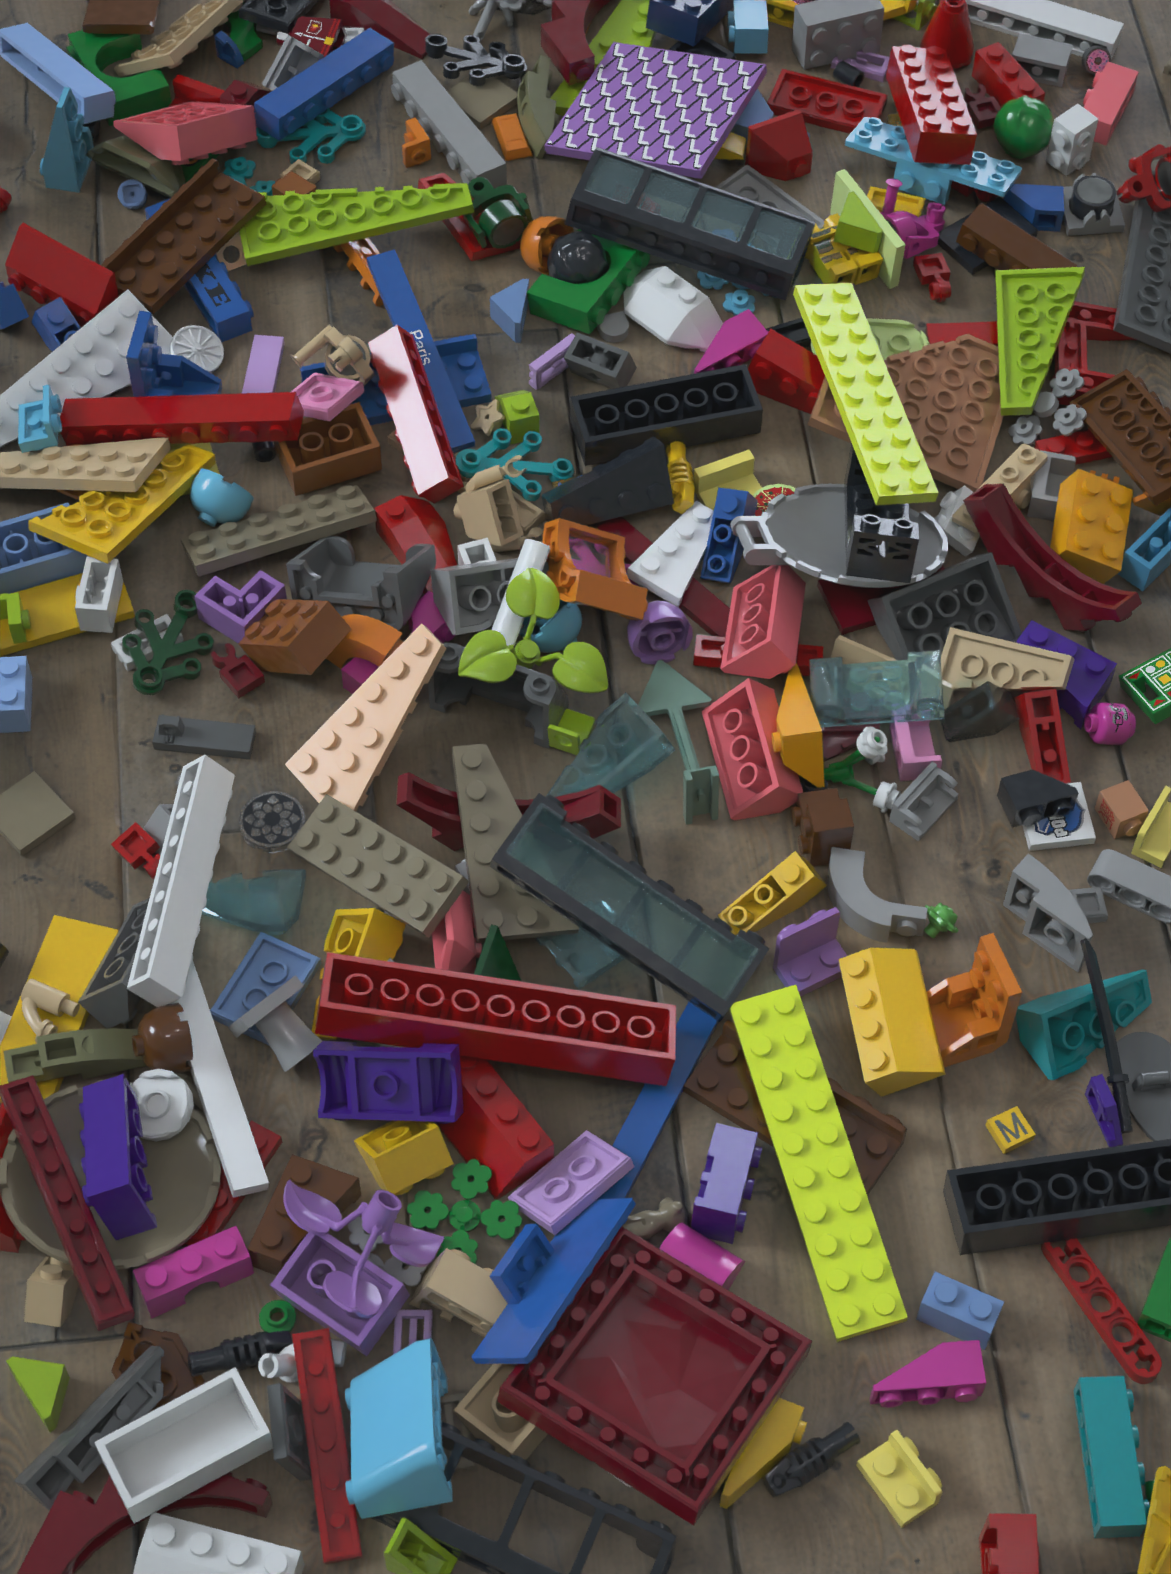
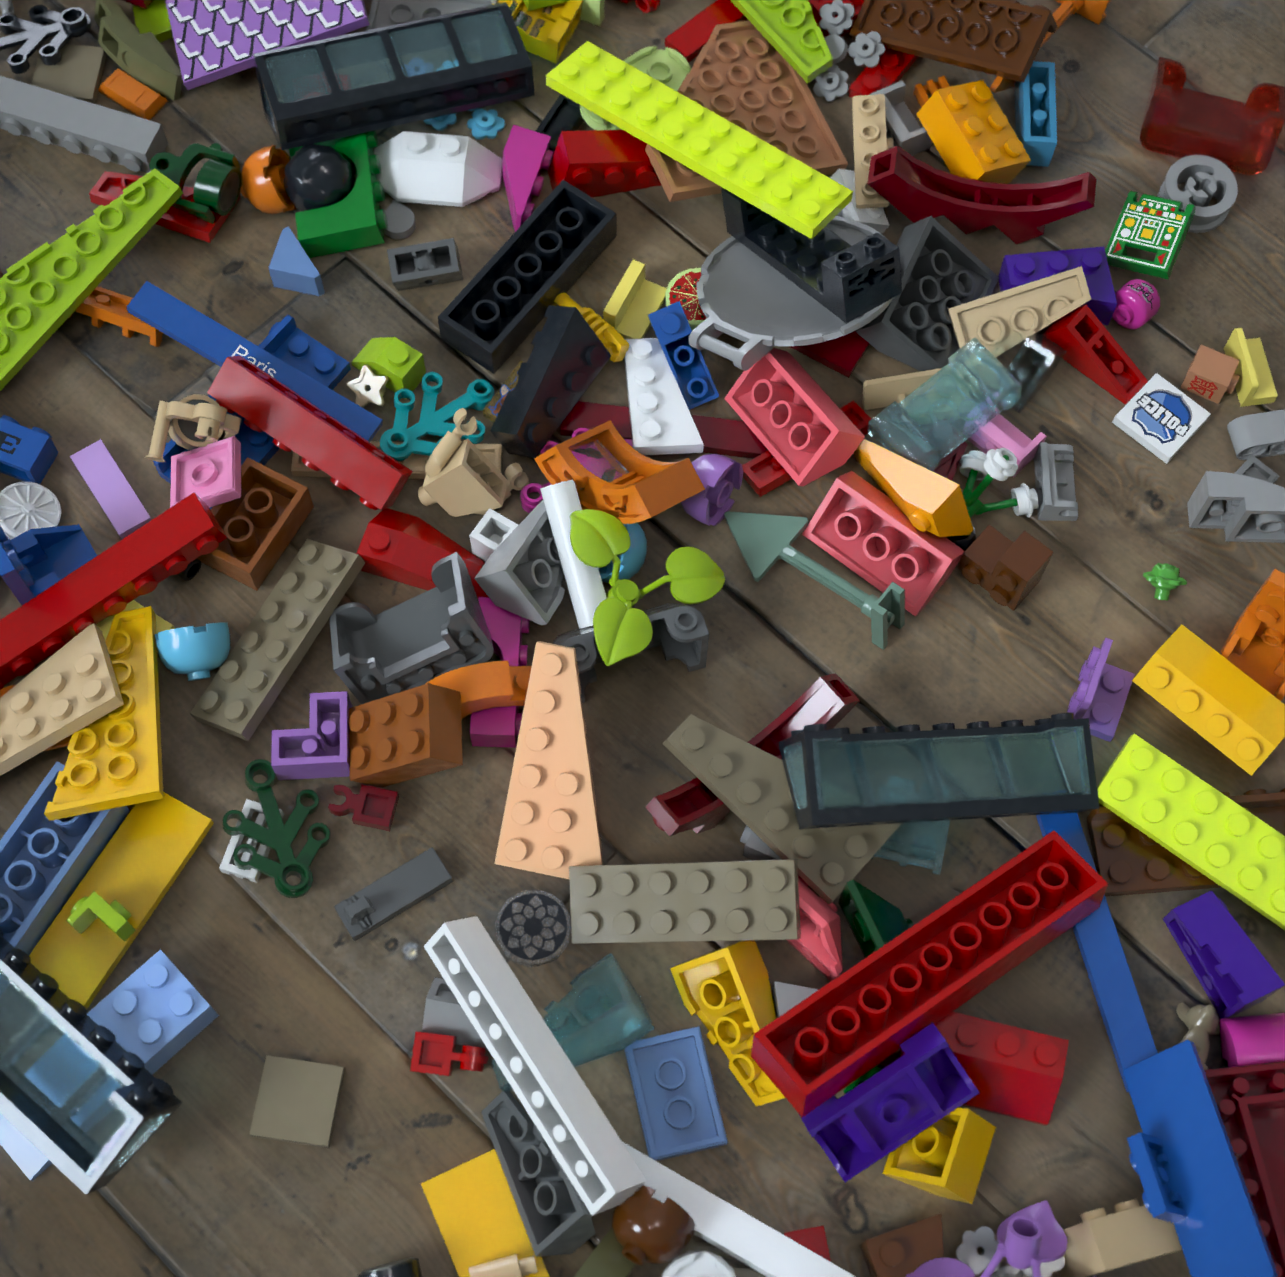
camera: 40 degrees left, 10 degrees up
(98, 595) = (174, 834): white brick -> none
(280, 1026) = (724, 1124): light grey plant -> none
(417, 144) = (51, 157): orange bracket -> none
(465, 1214) = (1041, 1163): green plant -> none
(549, 364) = (378, 292): lavender tile -> none
(570, 731) = (722, 639): lime bracket -> none
(571, 1182) = (1103, 1060): lavender tile -> none
(617, 752) = (774, 633): clear light blue wedge -> none
(774, 896) = (1019, 665): yellow slope -> none
(862, 908) = (1086, 616): light grey arch -> none
(1034, 796) = (1142, 413): black slope -> none

